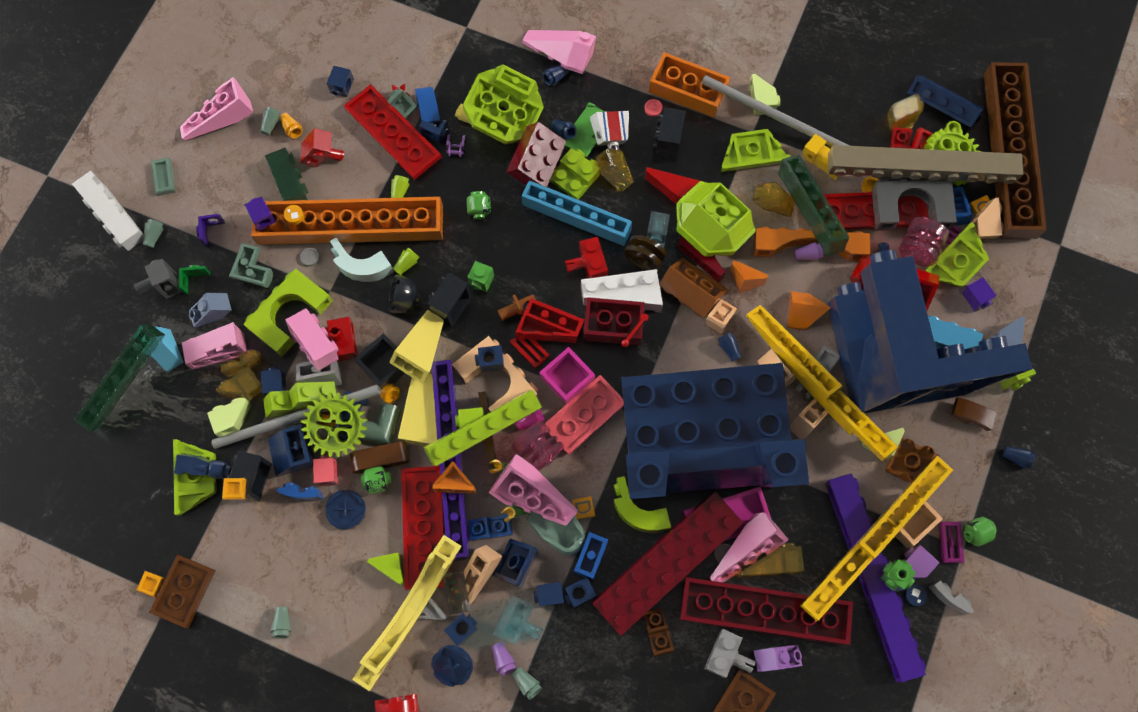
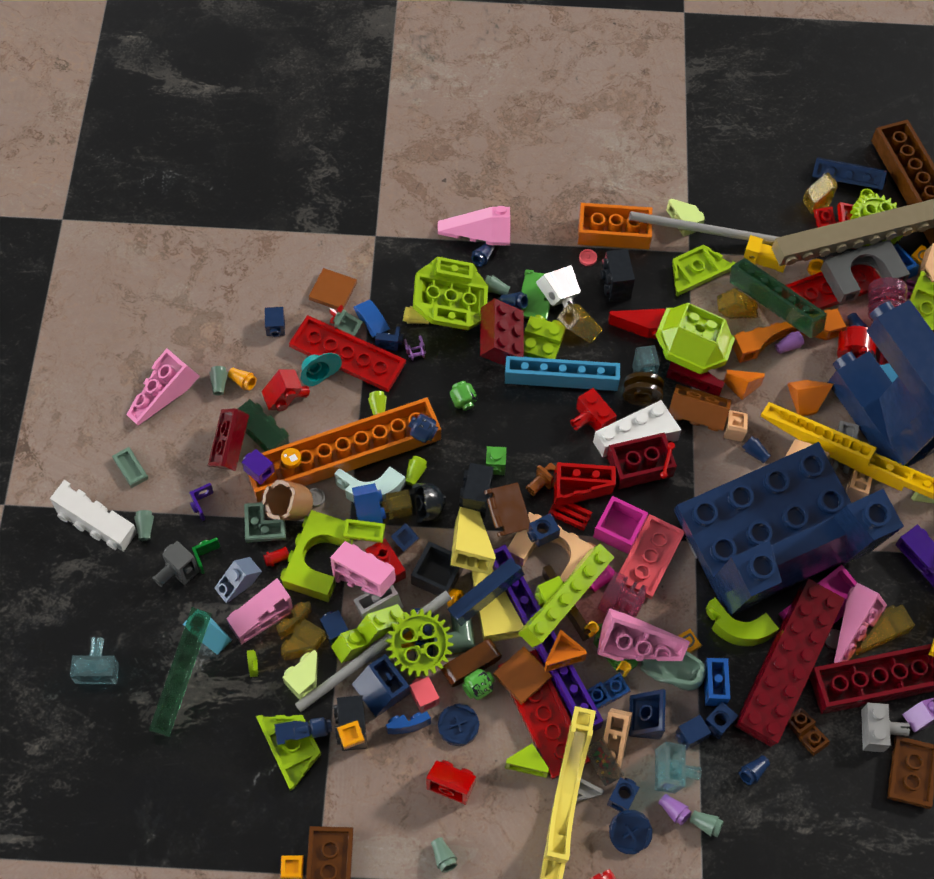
camera: 25 degrees left, 10 degrees down
(58, 346) = (94, 667): none -> clear light blue brick
(191, 390) = (252, 663): none -> lime tile
(250, 300) = (276, 556): none -> red pin
(253, 178) = (228, 439): none -> dark red slope
(277, 253) = (287, 501): none -> medium nougat cylinder
(313, 560) = (450, 781): none -> red slope
(331, 303) = (364, 530): none -> lime tile
(345, 282) = (367, 503): none -> blue brick
(358, 137) = (319, 367): none -> teal piece
(367, 321) = (405, 537): none -> dark blue brick
(376, 288) = (398, 504): none -> clear yellow brick
(405, 66) = (332, 289): none -> dark orange tile
(413, 398) = (486, 591): none -> dark blue panel
(416, 486) = (522, 675): none -> dark orange tile
(420, 225) = (423, 428): none -> dark blue head
(465, 327) = (508, 509): none -> reddish brown piece
(553, 109) = (496, 286): none -> sand green cone
(591, 650) = (754, 770): none -> dark blue cone

